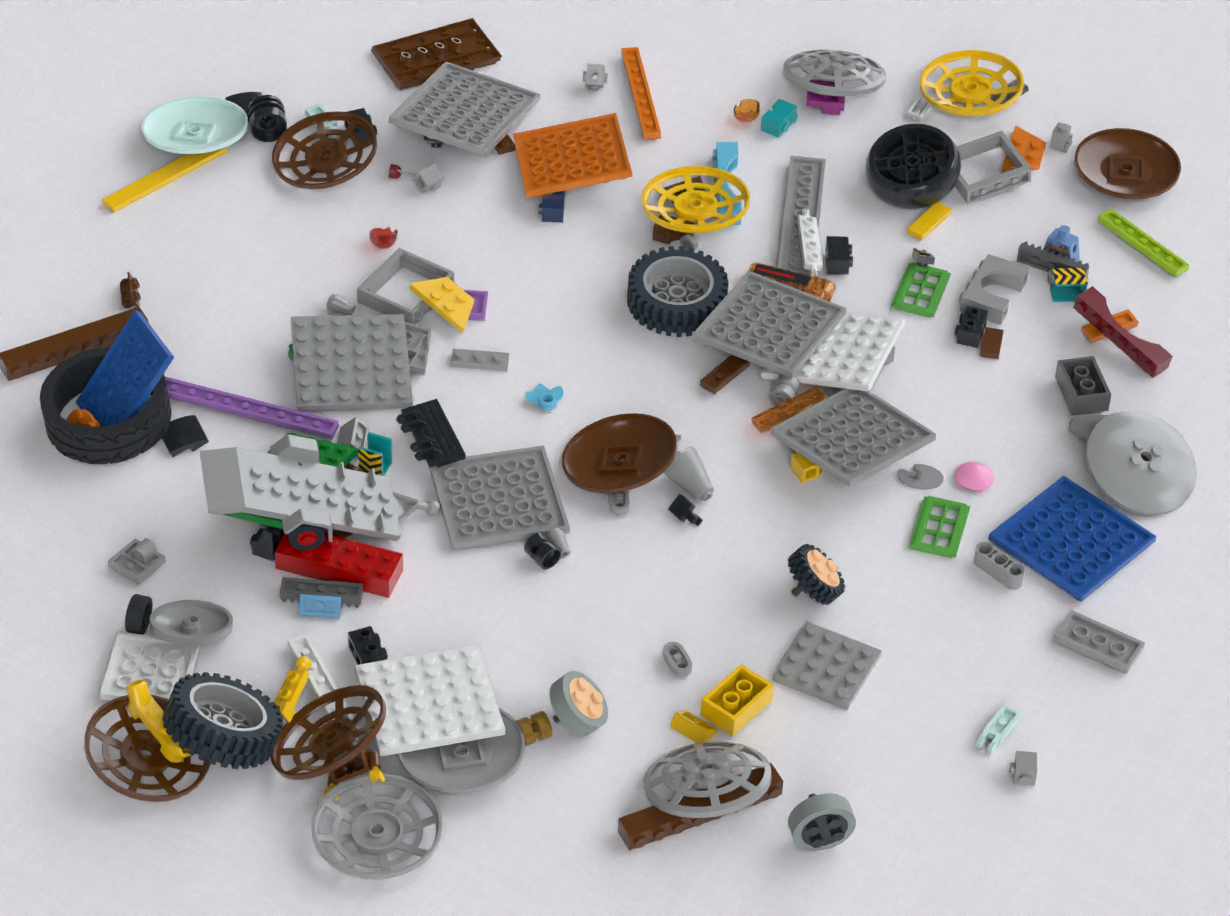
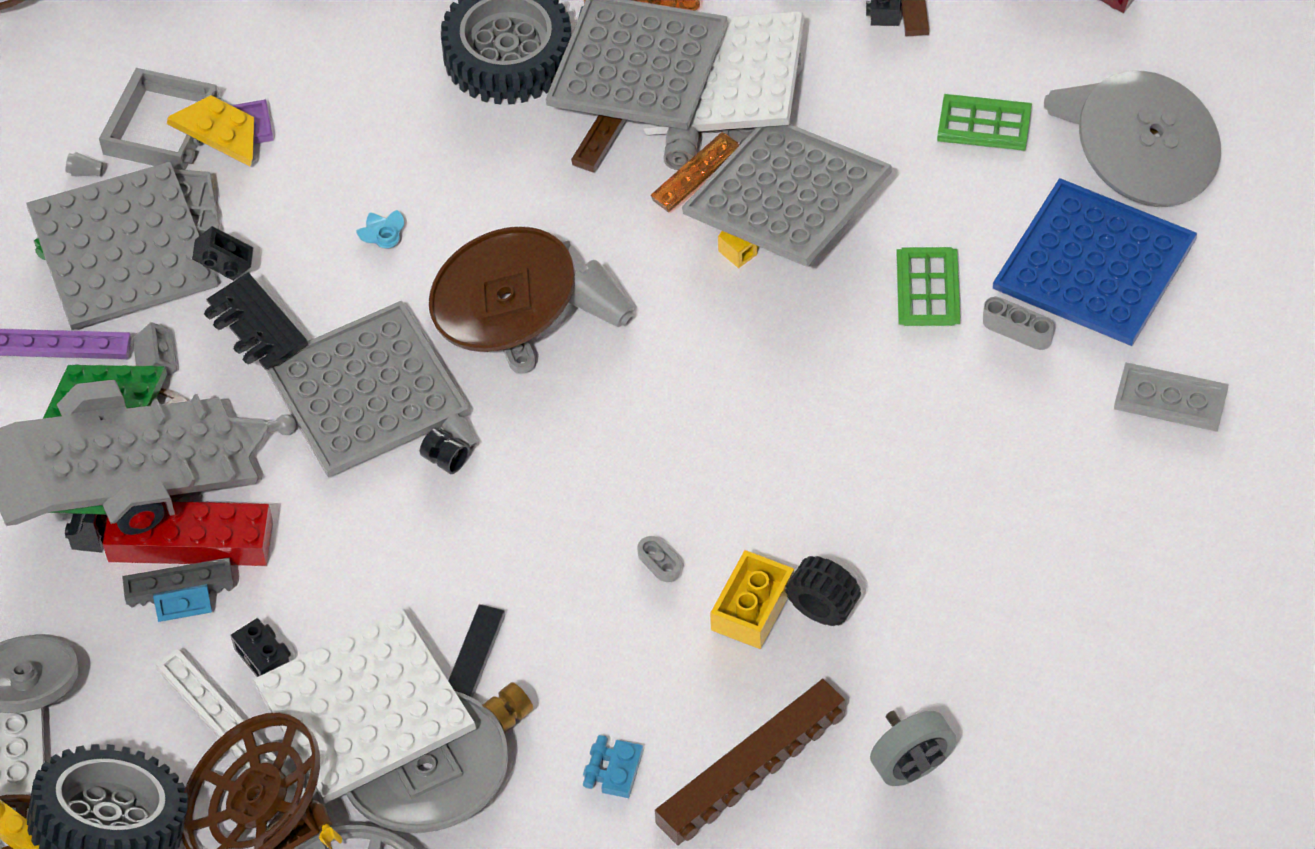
camera: 10 degrees left, 10 degrees up
(292, 688) = (181, 734): yellow plate -> none
(377, 455) = (194, 371): piece -> none
(383, 237) = (110, 57): clear red hair -> none
(422, 382) = (222, 253): none -> black brick
(480, 359) = (284, 198): light grey plate -> none
(524, 686) = (476, 649): none -> black tile
(578, 703) = (556, 660): light grey wheel -> none
(603, 791) = (621, 770): none -> dark azure plate
(683, 510) = (603, 346): black plate -> none
(693, 727) = (707, 649): yellow slope -> none
(707, 772) = (753, 727): light grey dish -> none
(790, 705) = (823, 591): none -> black tyre
(815, 574) = (799, 398): black wheel -> none
(827, 665) = (847, 517): light grey plate -> none
(925, 477) = (889, 220): light grey piece -> none
(974, 476) = (949, 205): bright pink dish -> none
(999, 728) = (1086, 548): light aqua hinge -> none
(1017, 438) = (984, 139): none -> bright green piece
(1024, 768) = (1135, 598): light grey brick -> none
(1083, 385) = (1045, 48): dark grey brick -> none

